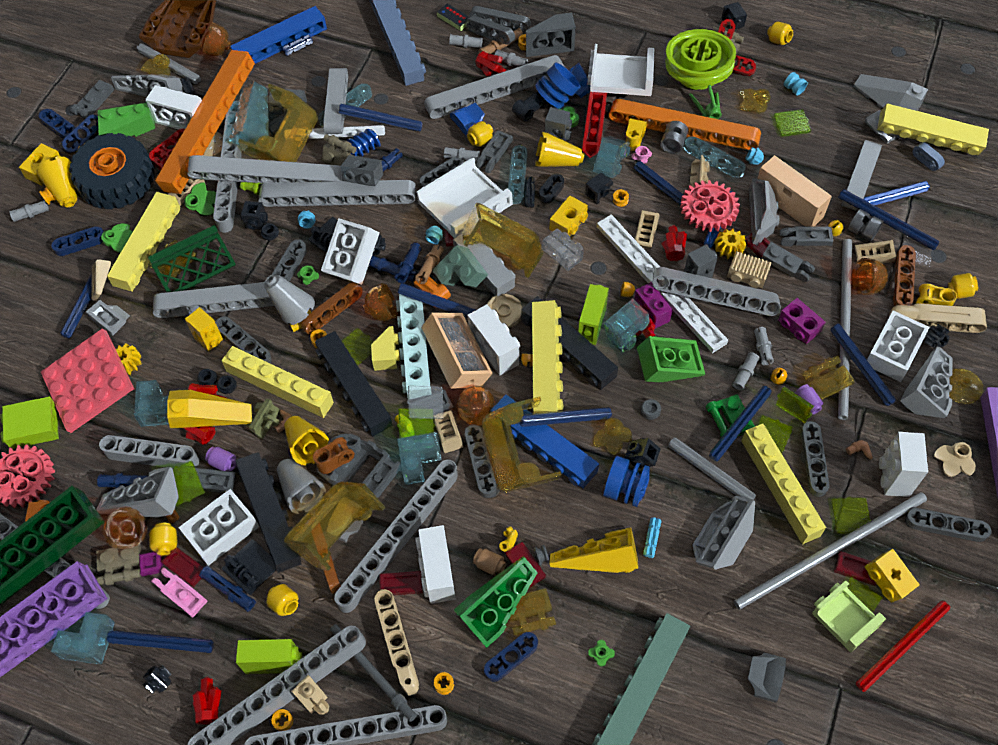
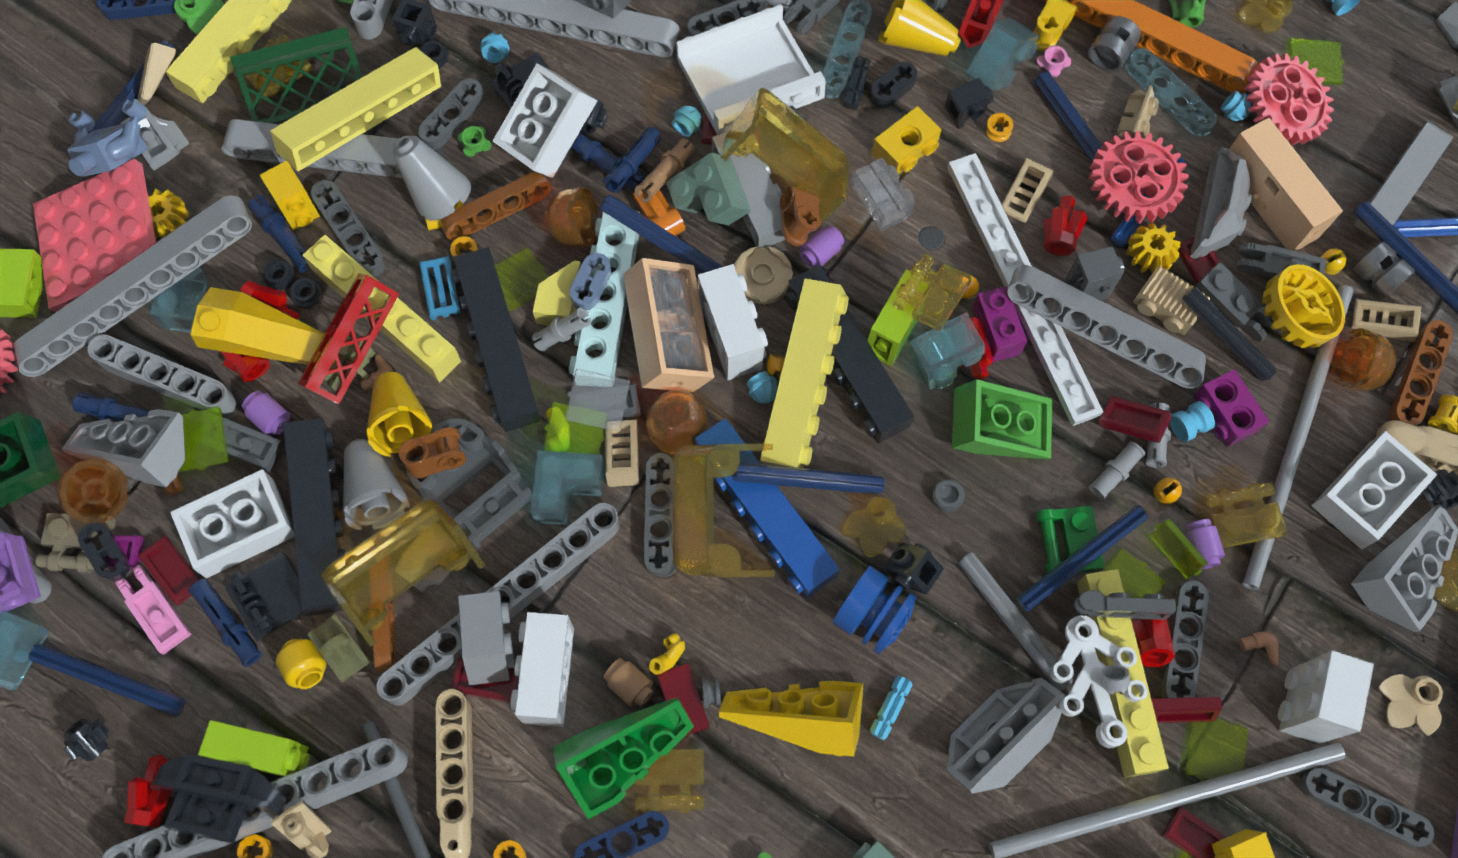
camera: 10 degrees right, 10 degrees up
(84, 325) = (106, 147): none -> sand blue torso
(119, 402) = (132, 286): none -> light grey beam
(137, 566) = (97, 556): none -> black beam
(163, 538) = (147, 520): yellow head -> none
(196, 349) = (274, 223): none -> dark blue pin
(232, 270) = (356, 108): none -> light yellow brick
(251, 685) = (214, 796): none -> black plate
(256, 399) = (337, 333): none -> red fence
(304, 584) = (338, 648): none -> olive hips
(315, 375) = (444, 310): none -> dark azure tile
(392, 367) = (561, 329): none -> light grey pin
(396, 553) = (485, 647): none -> light grey brick
(398, 335) = (596, 284): none -> sand blue beam
(517, 269) = (799, 214): none -> dark orange piece
(522, 373) = (762, 387): none -> medium azure plate
(535, 286) = (821, 246): none -> medium lavender brick
(615, 292) = (941, 296): none -> clear yellow plate
(748, 339) = (1135, 419): none -> dark red tile
(768, 484) = (1091, 676): none -> white plant
(772, 440) = (1122, 606): none -> dark grey hinge
(779, 481) = (1115, 679): none -> light grey hinge
(781, 333) = (1192, 421): none -> medium azure wheel
(783, 143) = (1290, 98): none -> coral gear
(788, 279) = (1229, 334): none -> black axle
(795, 457) = (1153, 642): none -> red rock
(826, 254) = (1304, 306): none -> yellow gear
(827, 493) = (1187, 709): none -> dark red tile
(863, 365) = (1308, 507): dark blue axle -> none

